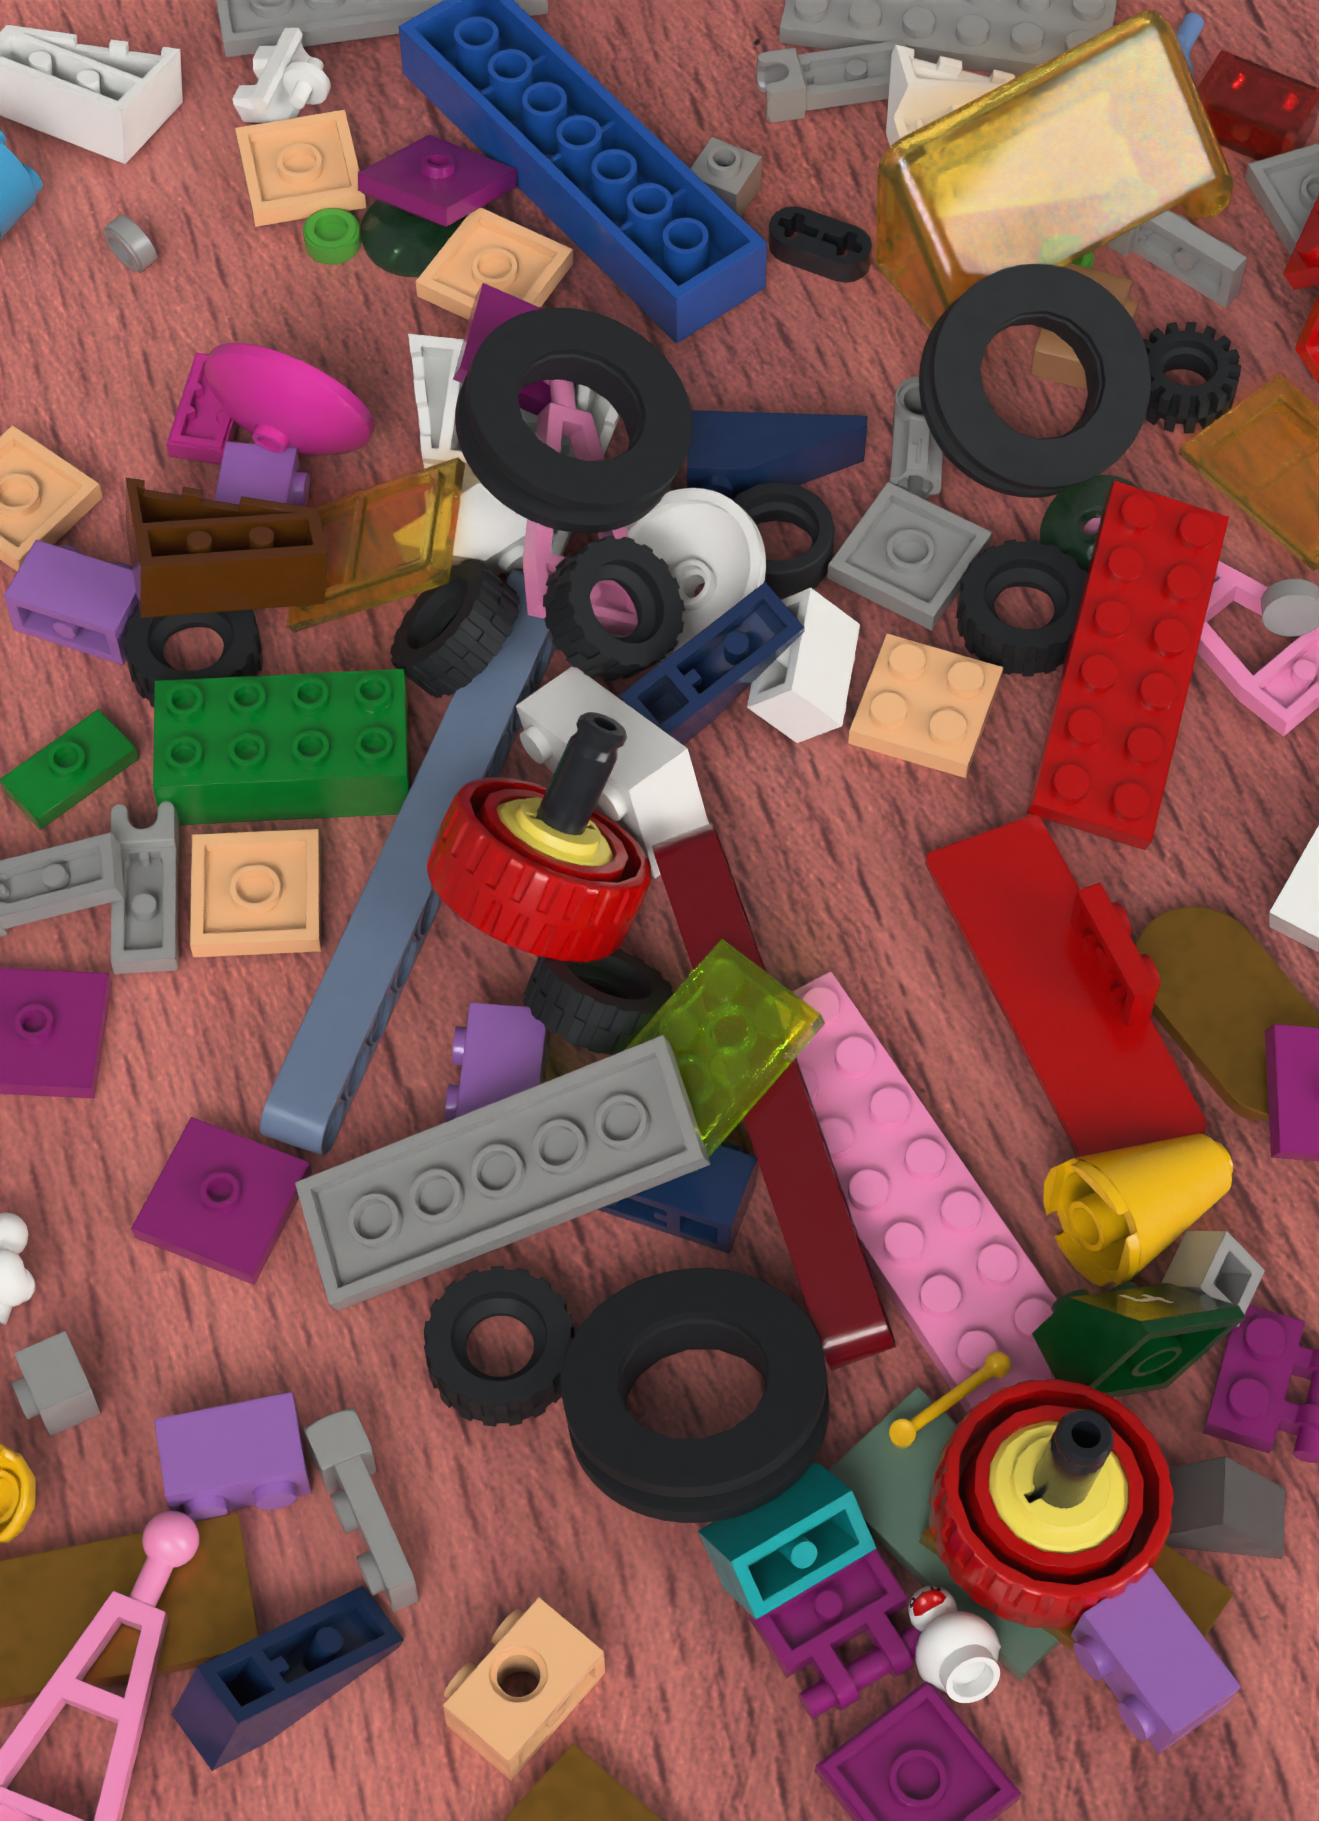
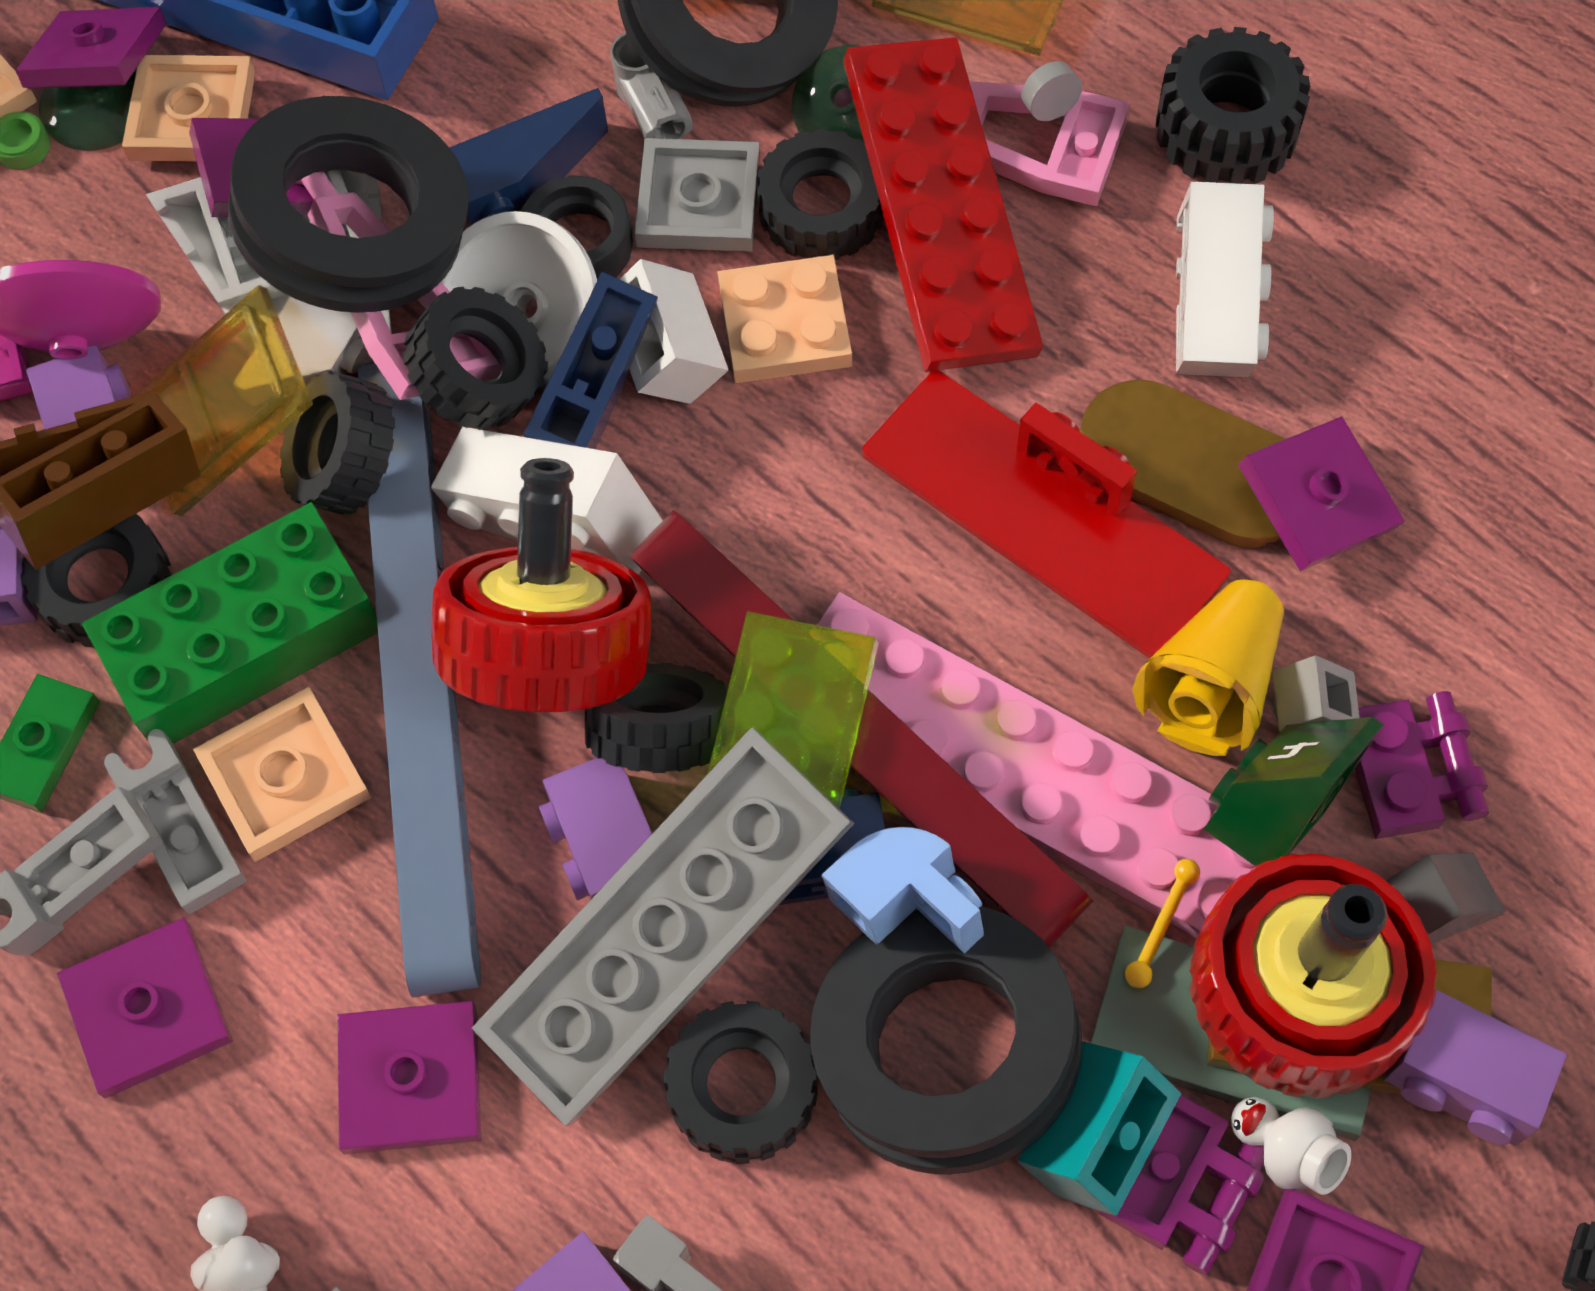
camera: 25 degrees left, 5 degrees up
(723, 1229) = (900, 872): none -> light blue brick

